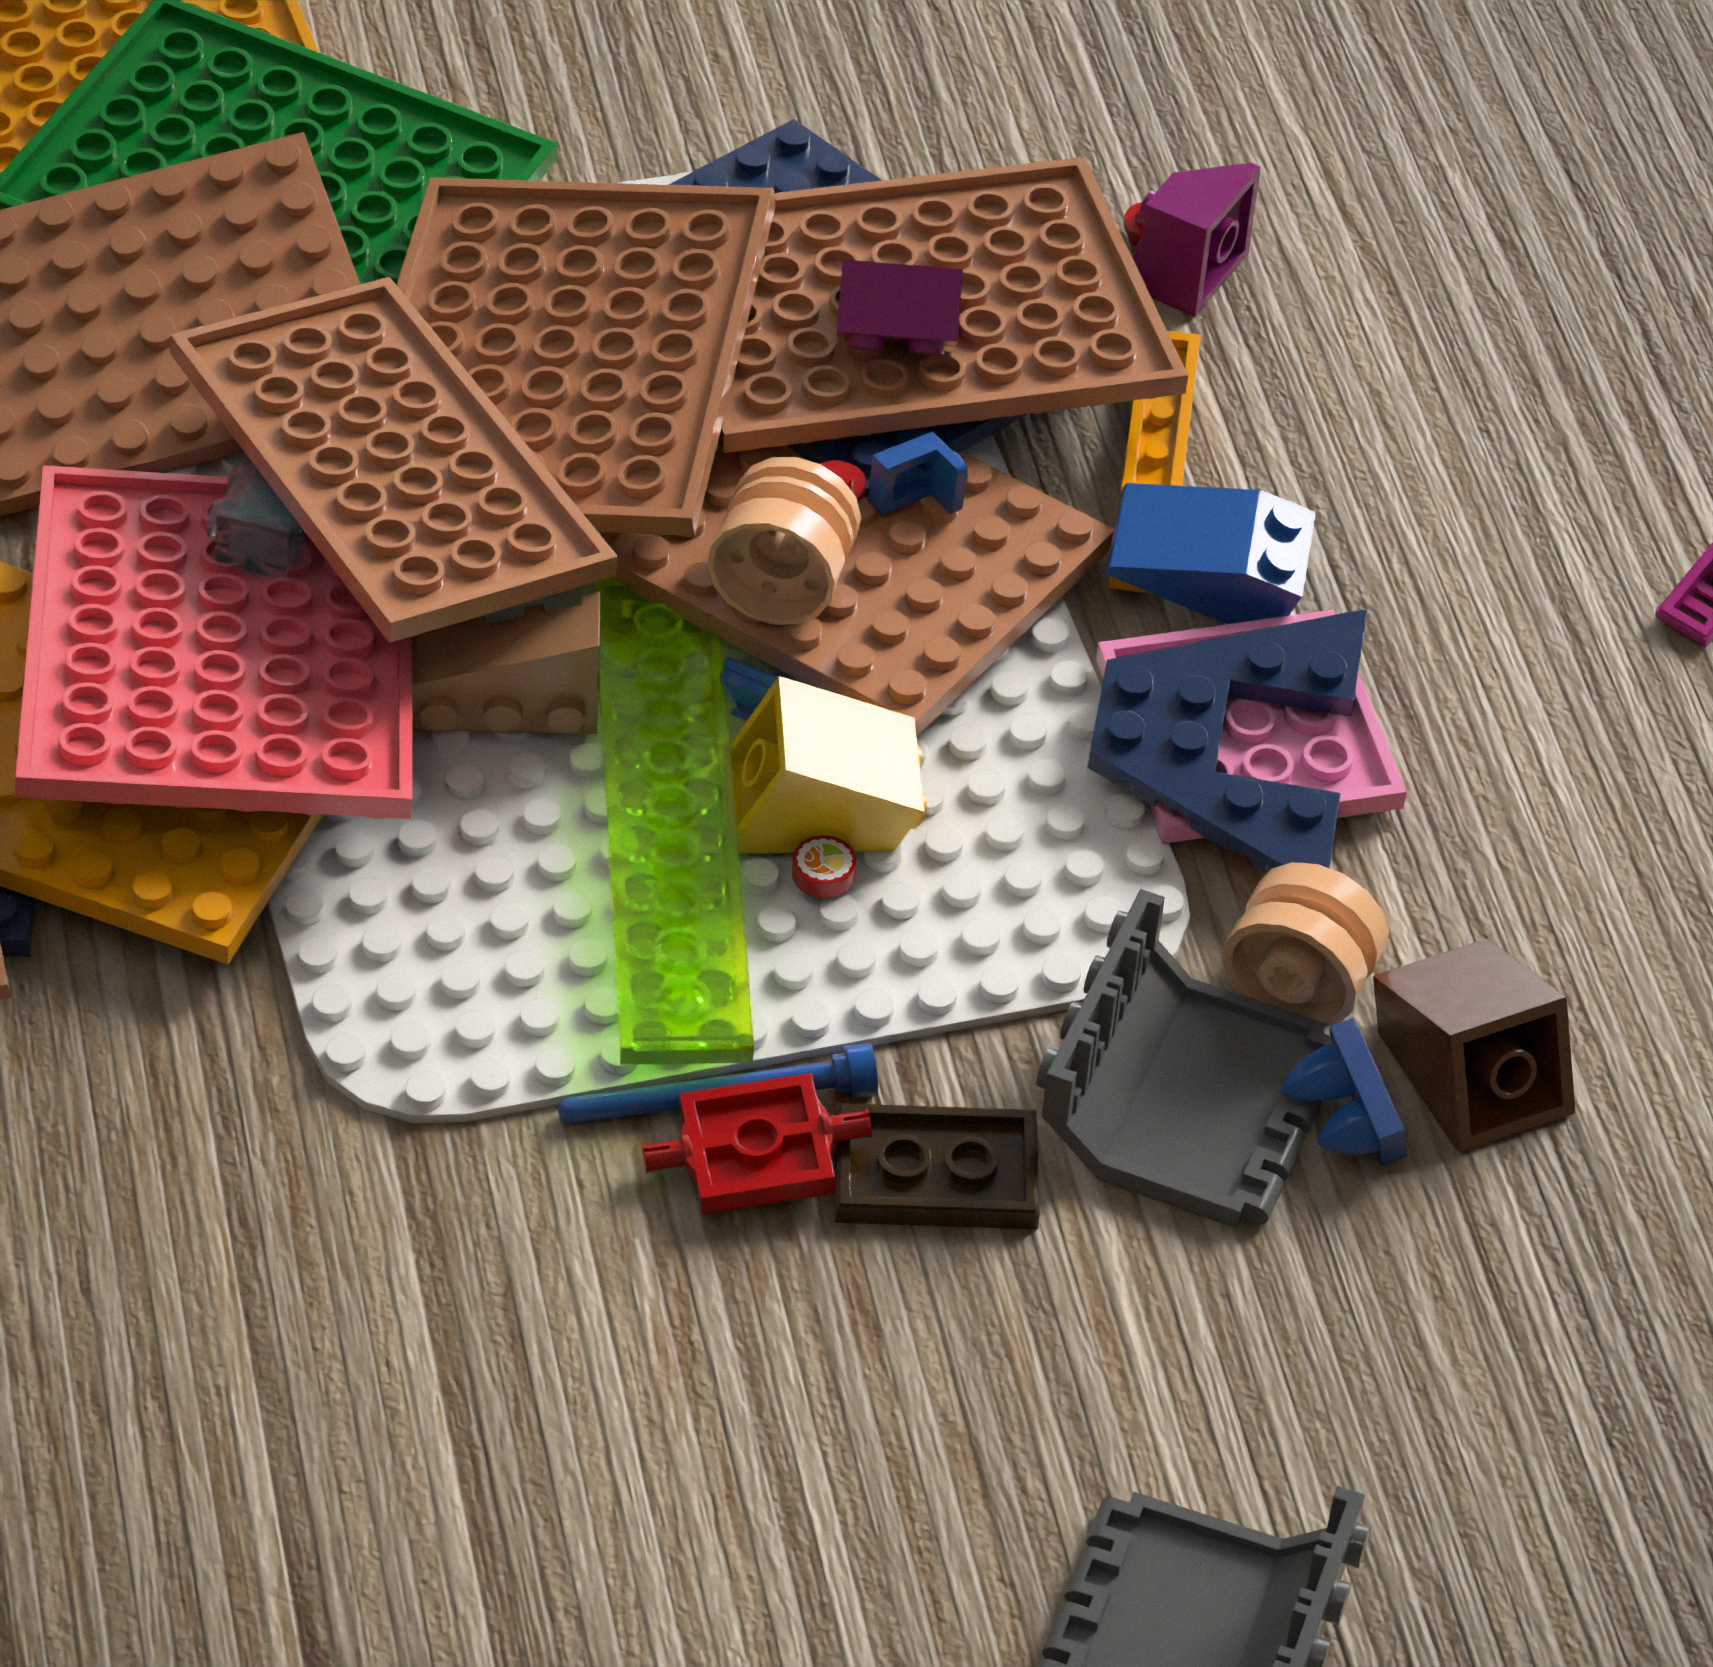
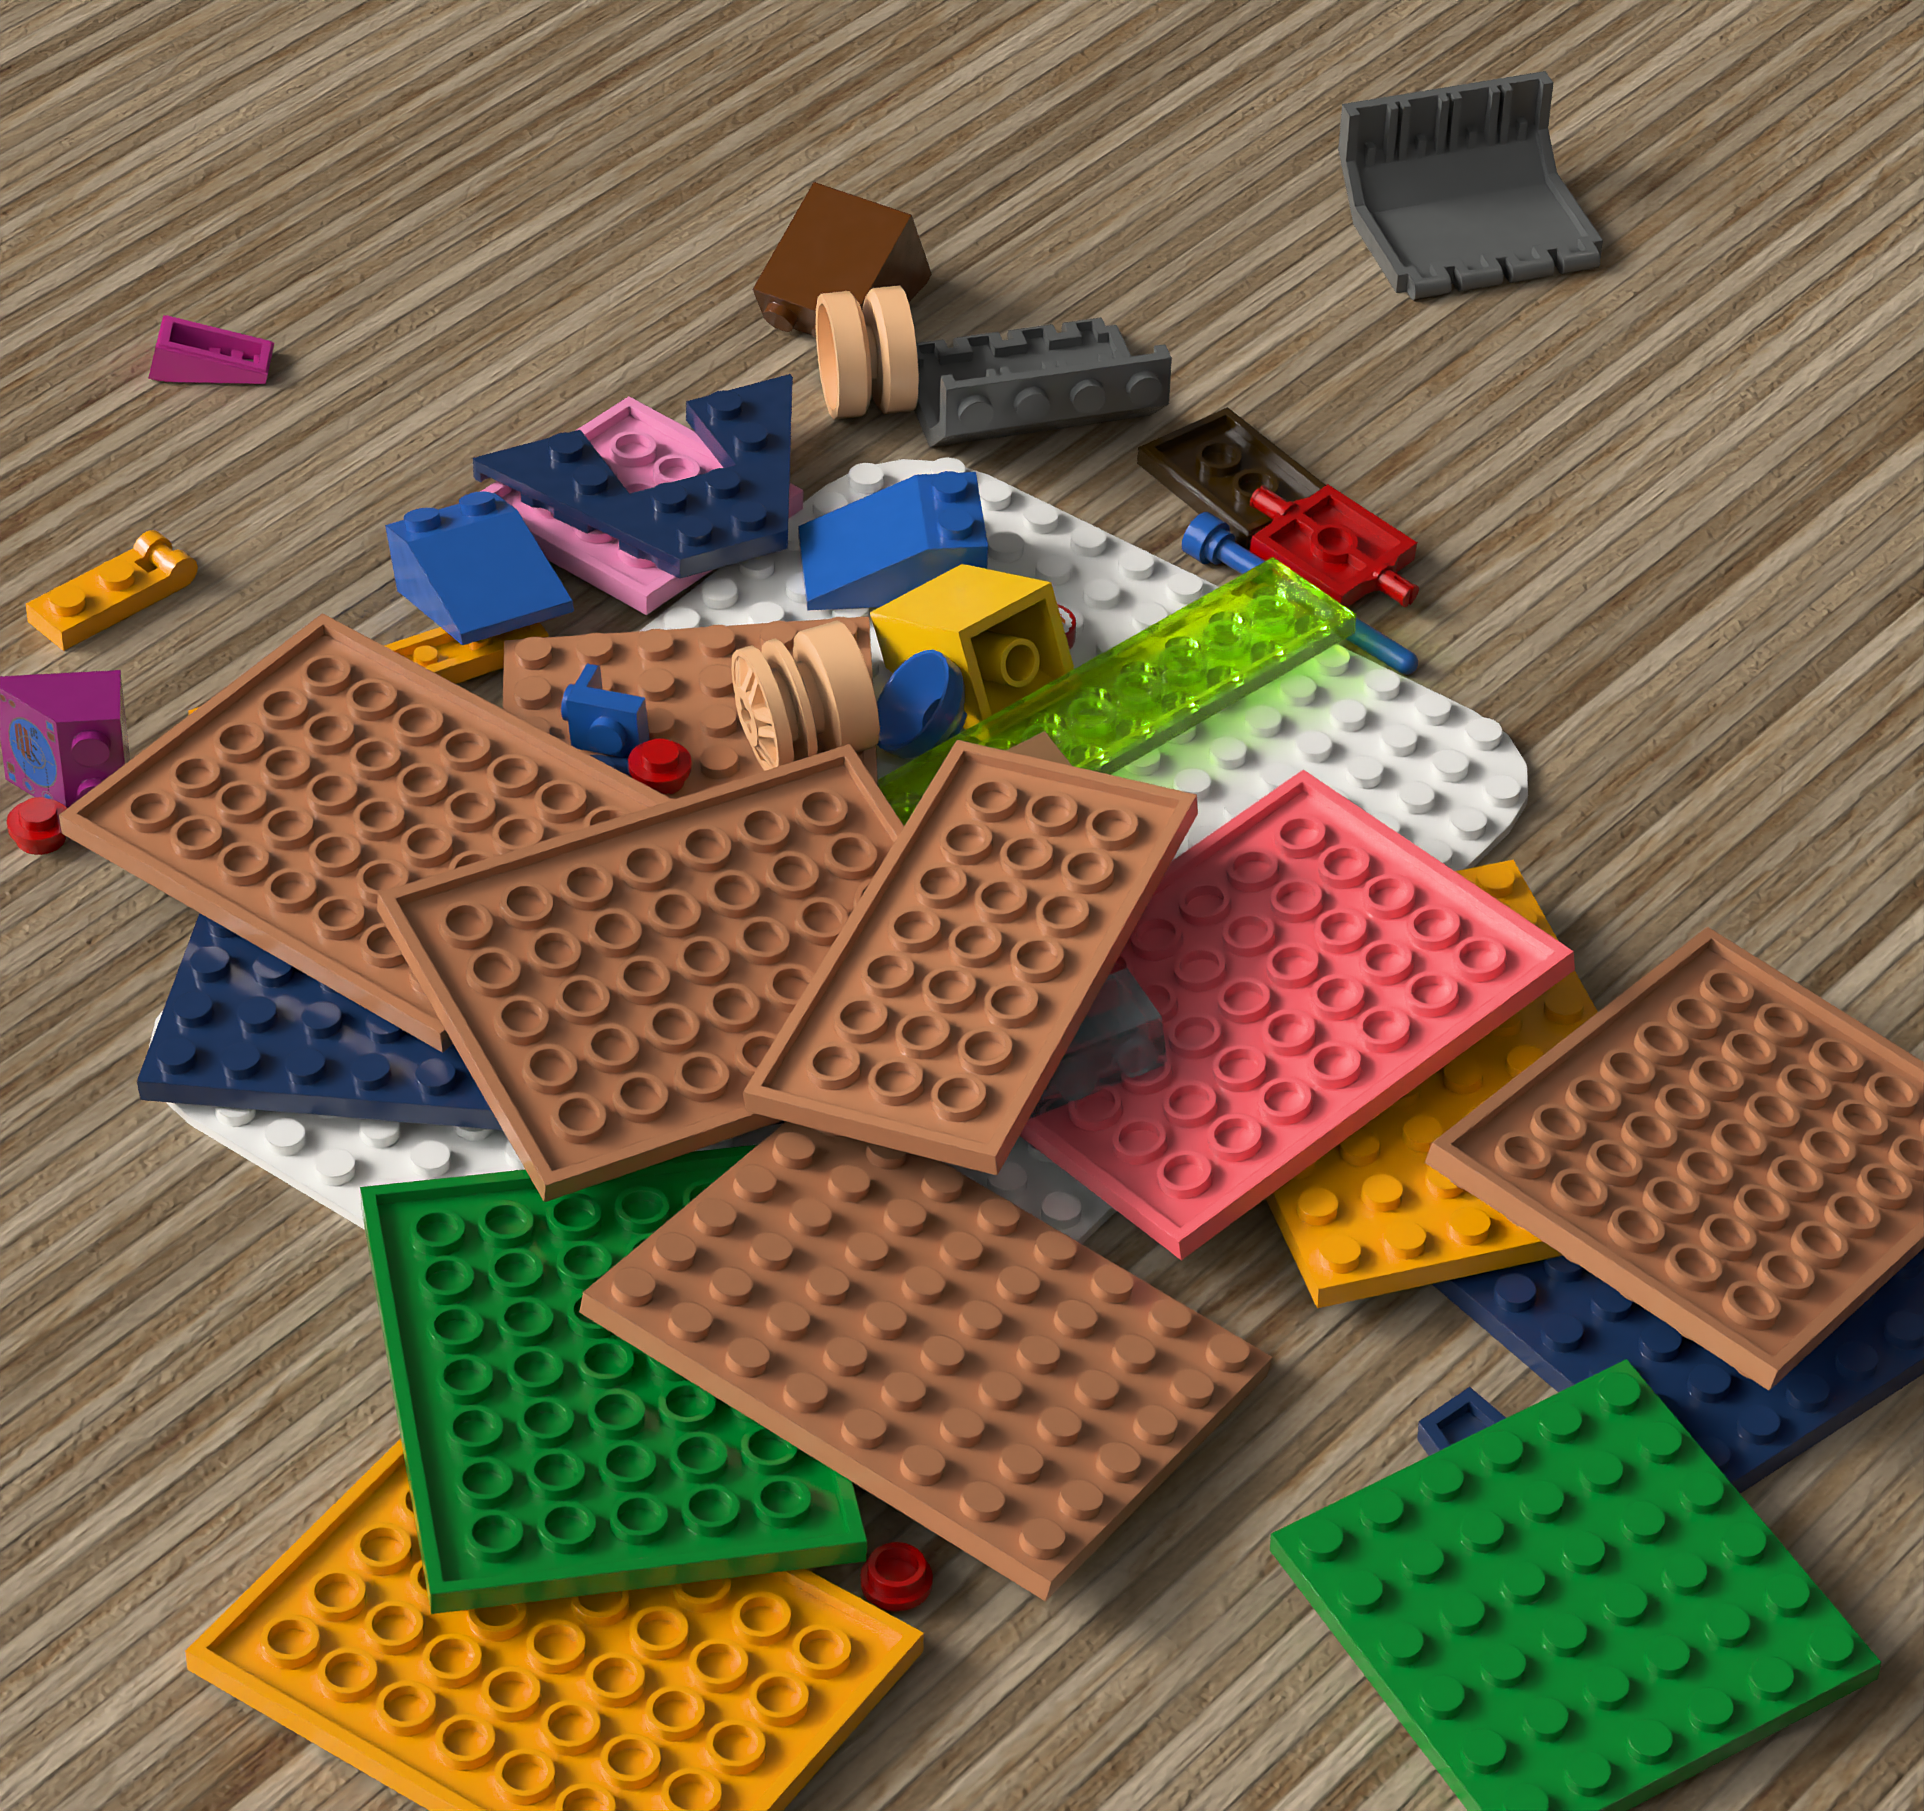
camera: 125 degrees left, 5 degrees down
(899, 306) = (434, 770): magenta slope -> none
(1006, 829) = (892, 541): none -> blue slope
(1343, 1070) = (960, 299): blue tile -> none
(1418, 387) = (112, 591): none -> light orange plate

